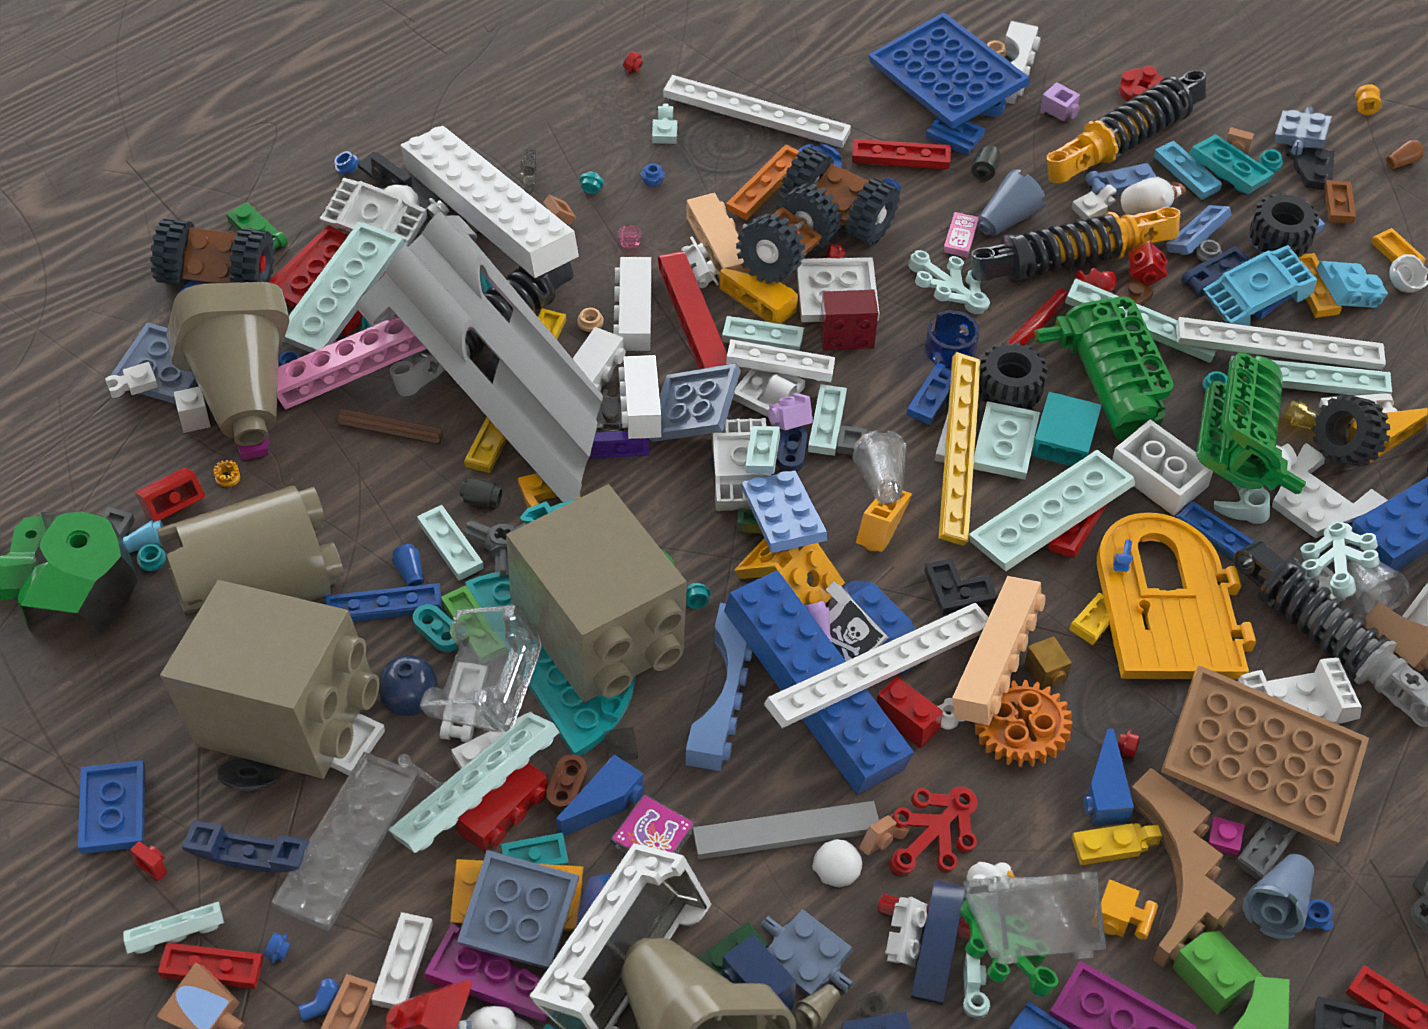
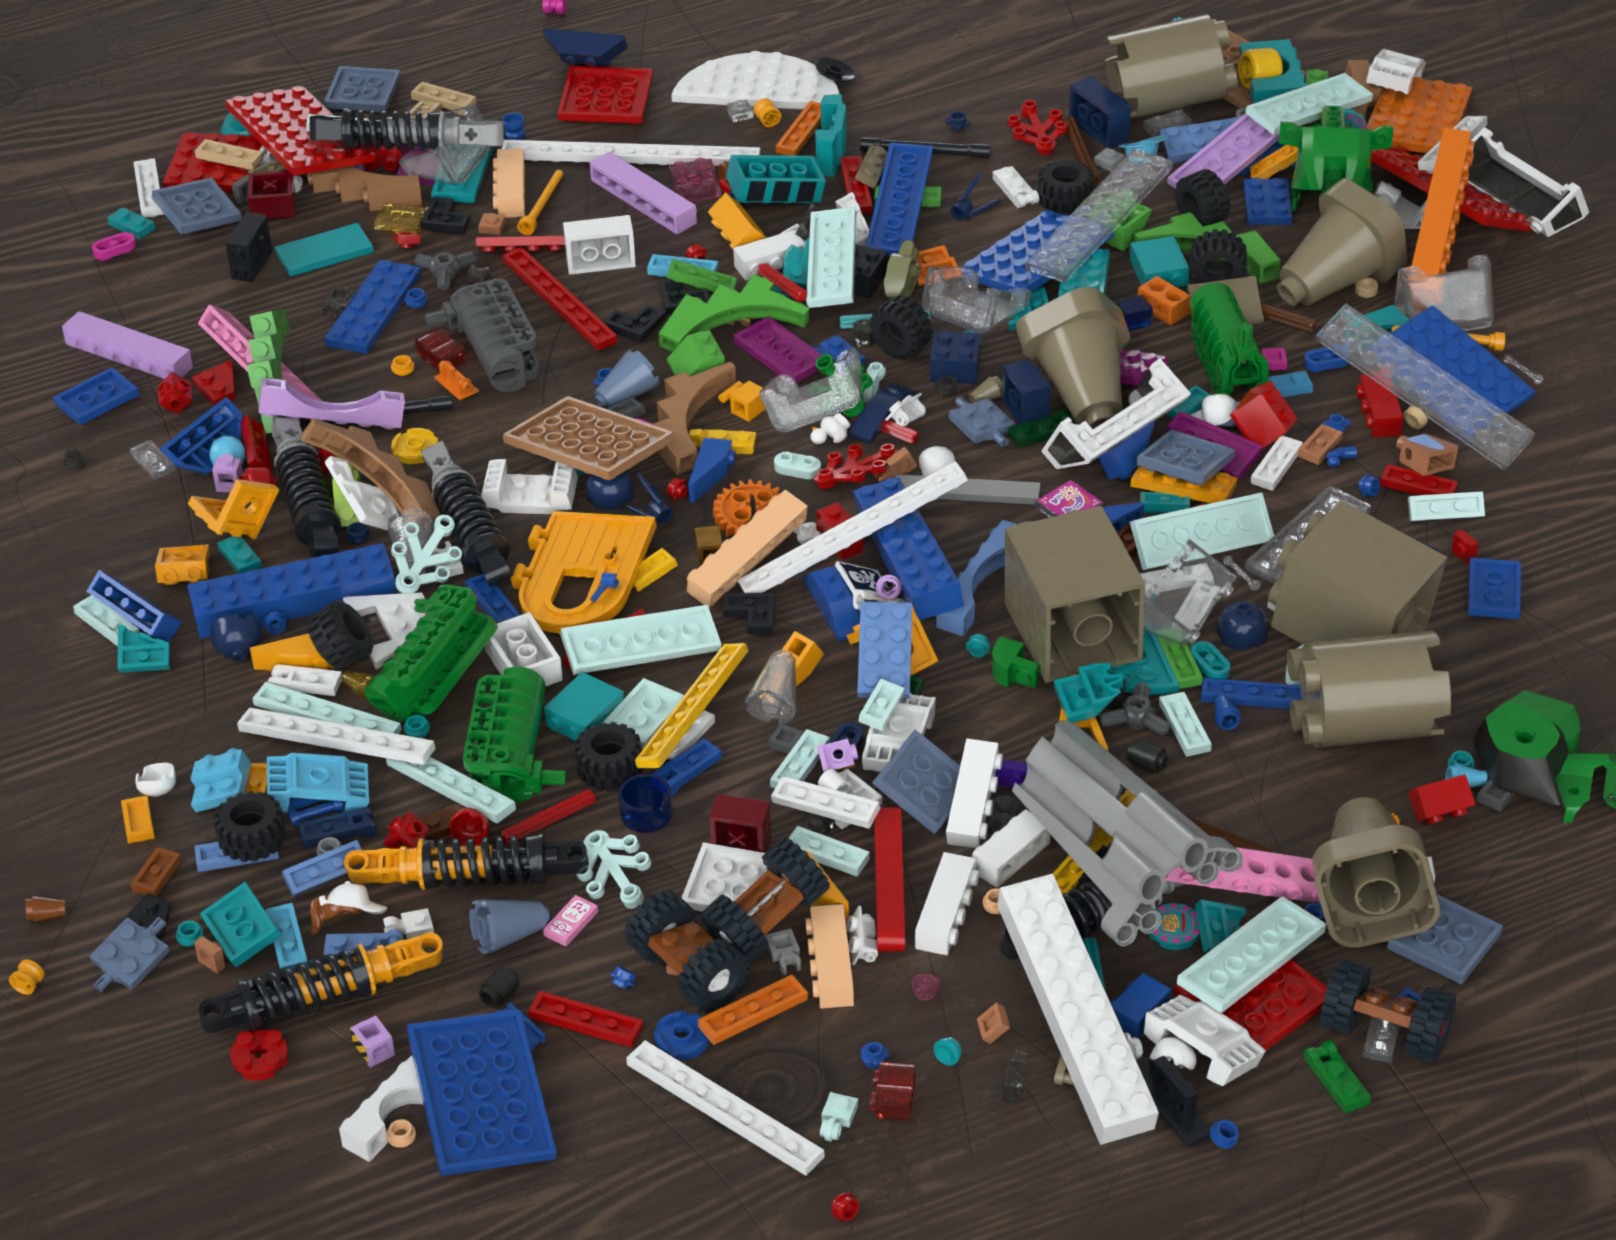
camera: 160 degrees left, 10 degrees down
(135, 378) = (1475, 912): white plate -> none
(624, 143) = (894, 1090): none -> clear red brick
(1008, 823) = (796, 465): none -> light aqua plate
(1132, 704) = (657, 508): none -> dark blue plant

